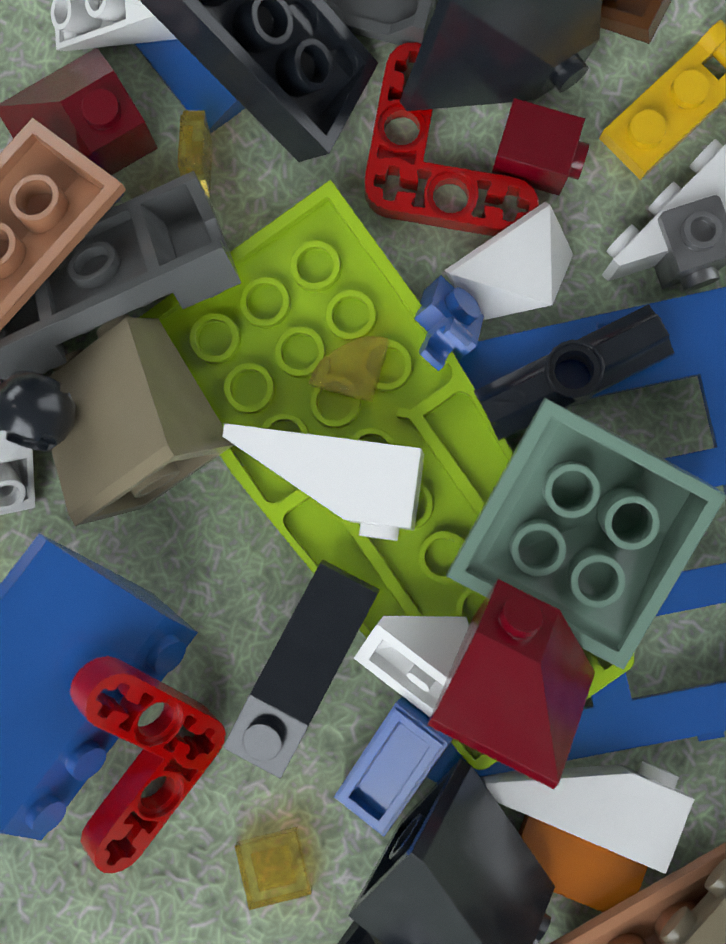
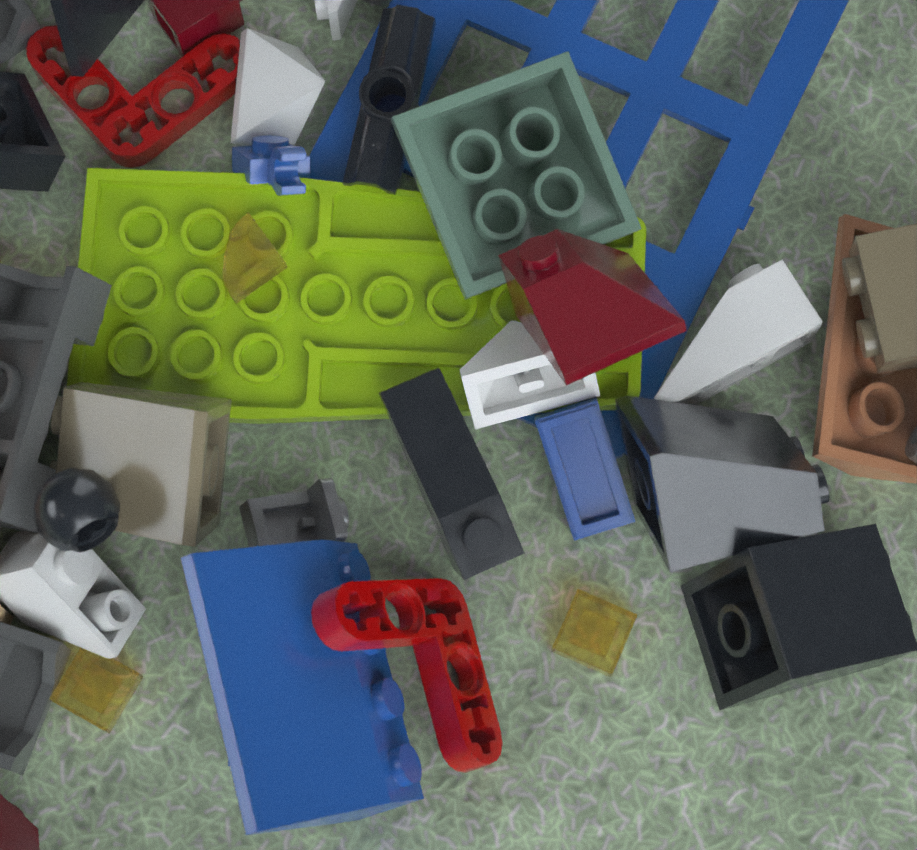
camera: 55 degrees left, 10 degrees down
(176, 572) = (296, 516): none -> flat silver bracket
(349, 477) = (327, 322): white slope -> none
(581, 867) = (778, 388): orange tile -> none

